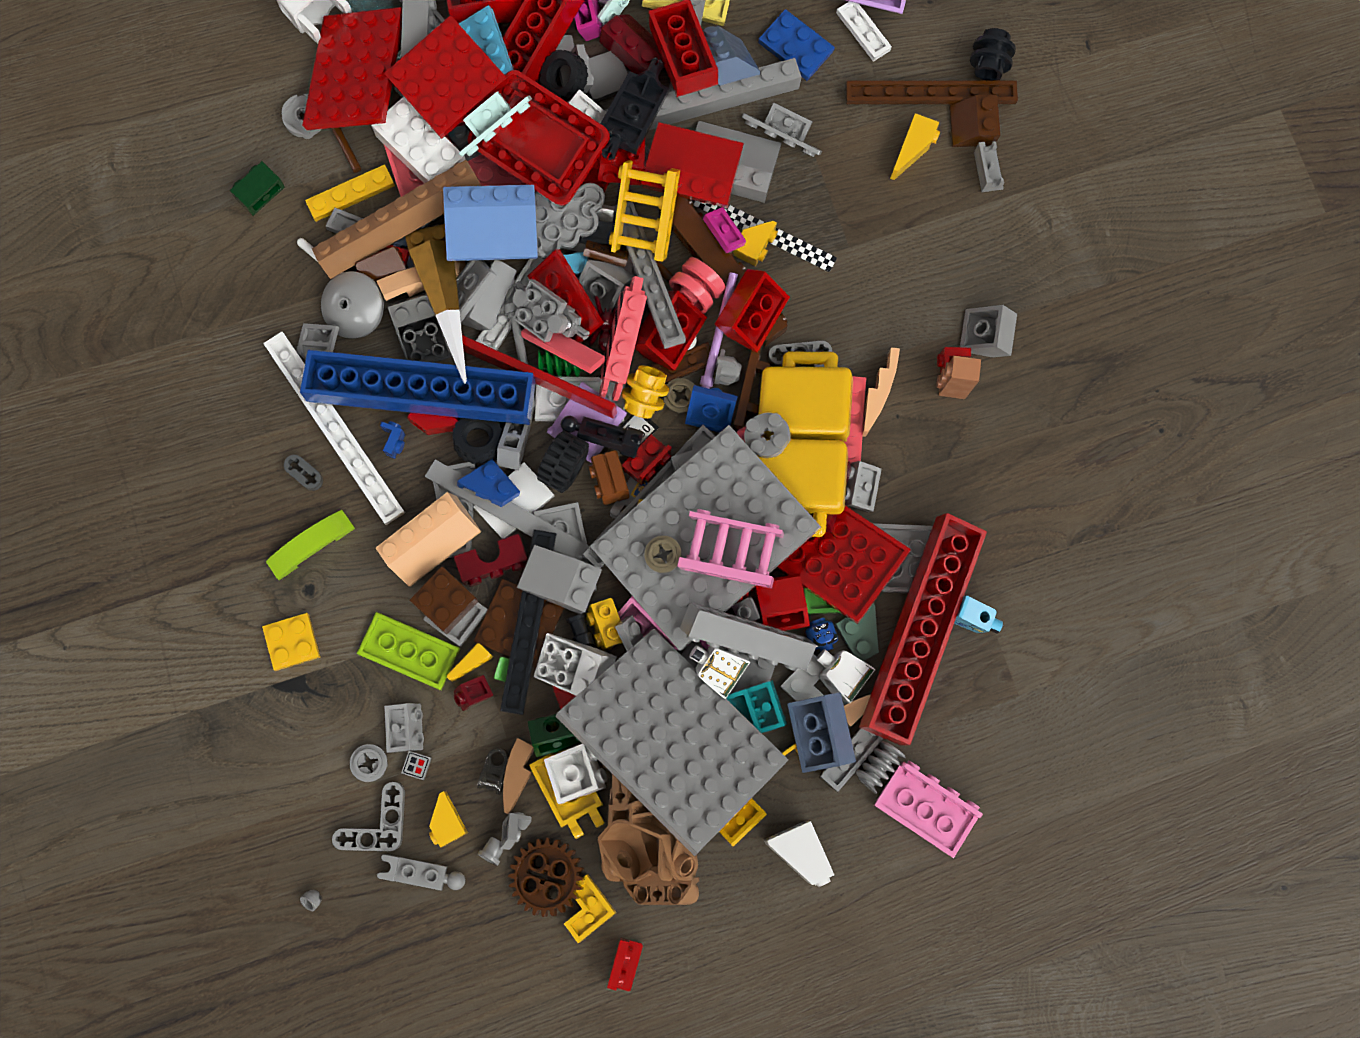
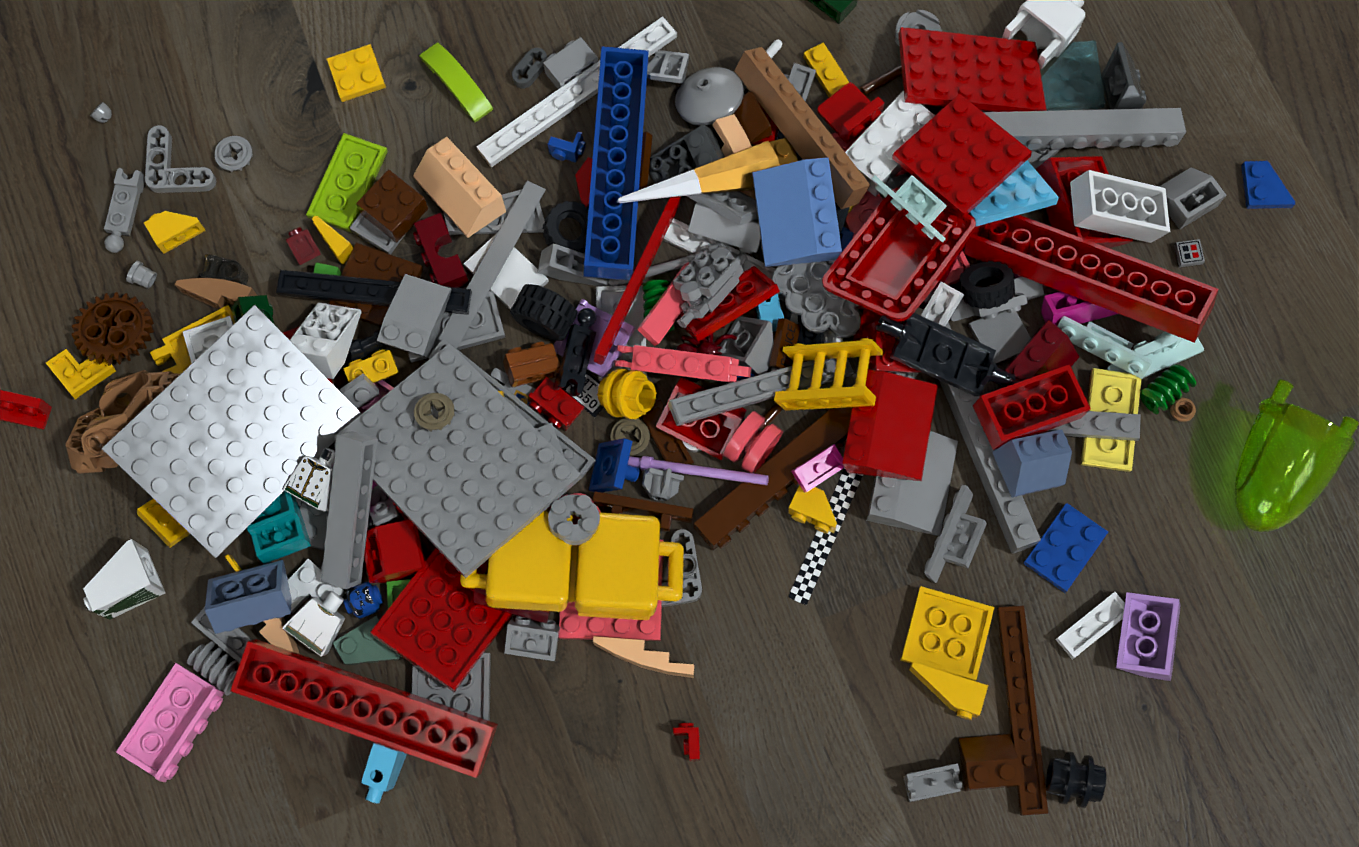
camera: 95 degrees right, 5 degrees down
(305, 431) = (569, 62): none -> light grey brick
(384, 177) = (850, 111): none -> red bracket
(403, 727) = (267, 183): light grey bracket -> none
(416, 765) = (230, 198): light grey tile -> none
(490, 484) = (519, 243): blue wing -> none
(512, 828) = (156, 289): light grey bracket -> none
(738, 571) = (416, 462): bright pink fence -> none
(752, 309) = (724, 502): red slope -> none
(867, 144) = (947, 633): none -> yellow plate
(959, 377) = (657, 740): nougat brick -> none
(989, 330) = (724, 784): light grey slope -> none

